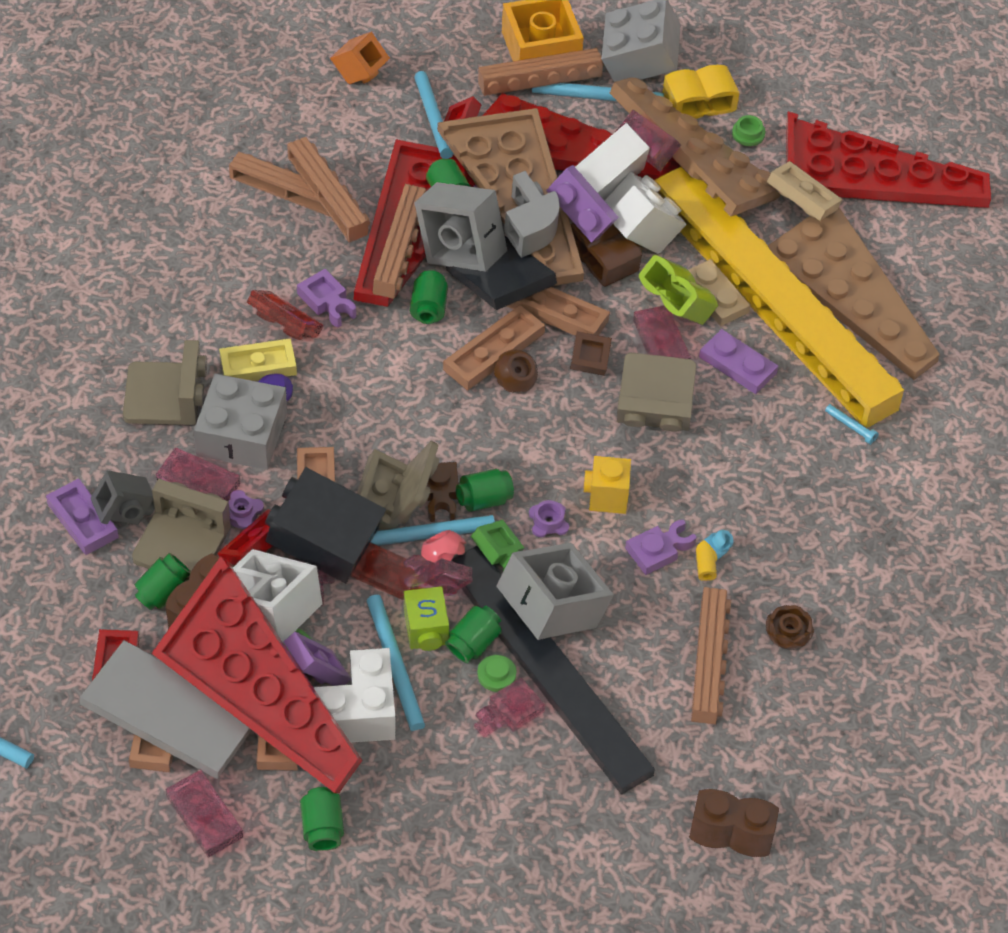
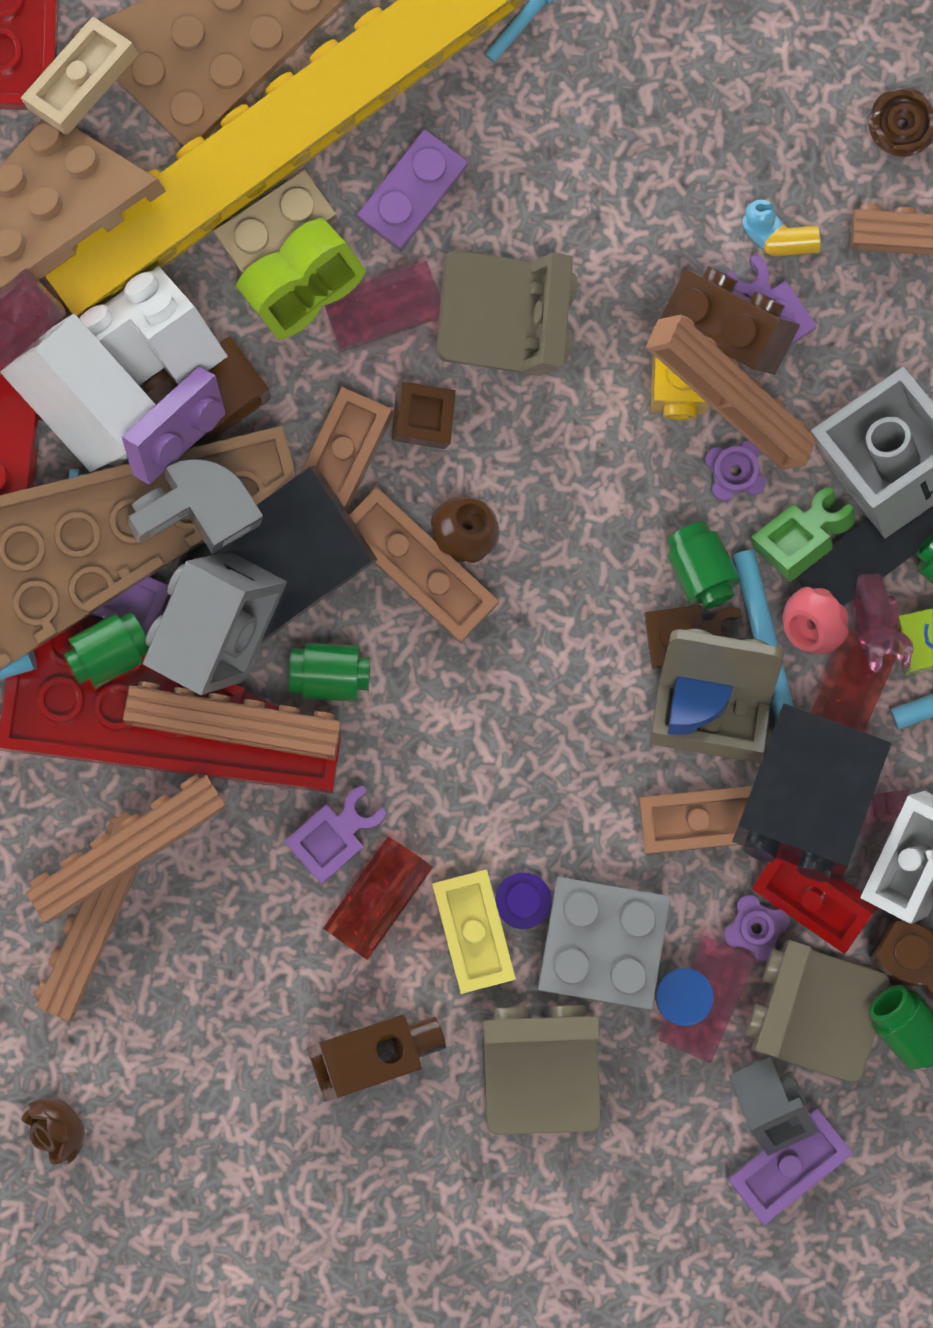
camera: 90 degrees left, 30 degrees up
(166, 158) = (55, 1129): none -> reddish brown plate
(186, 294) = (352, 1063): none -> reddish brown torso
(200, 456) = (684, 997): none -> blue tile
(391, 474) = (696, 704): none -> blue tile
(600, 488) = (731, 391): none -> nougat piece
(647, 505) = (740, 325): none -> reddish brown brick

